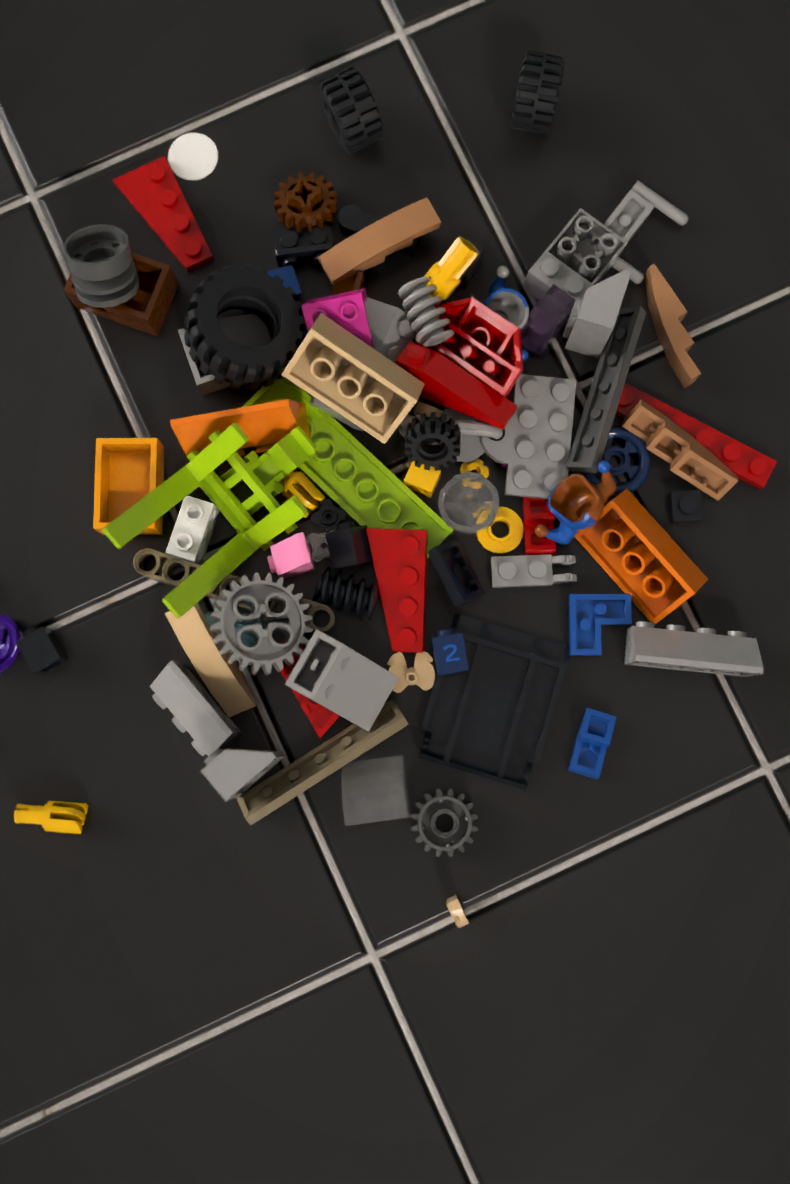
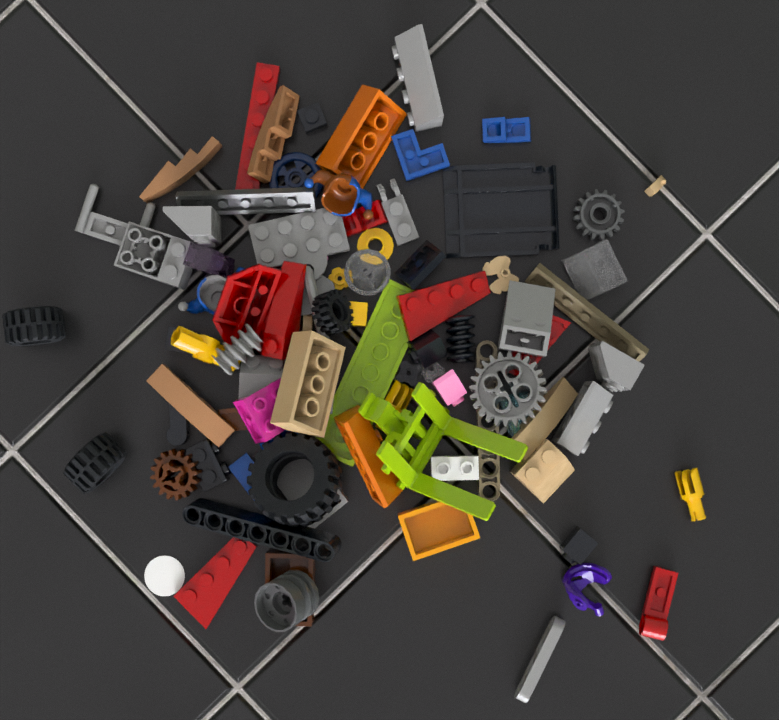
camera: 115 degrees left, 5 degrees up
(146, 635) = (543, 470): none -> tan slope
(220, 248) = (250, 529): none -> black beam
(449, 652) = (479, 250): dark blue brick -> none

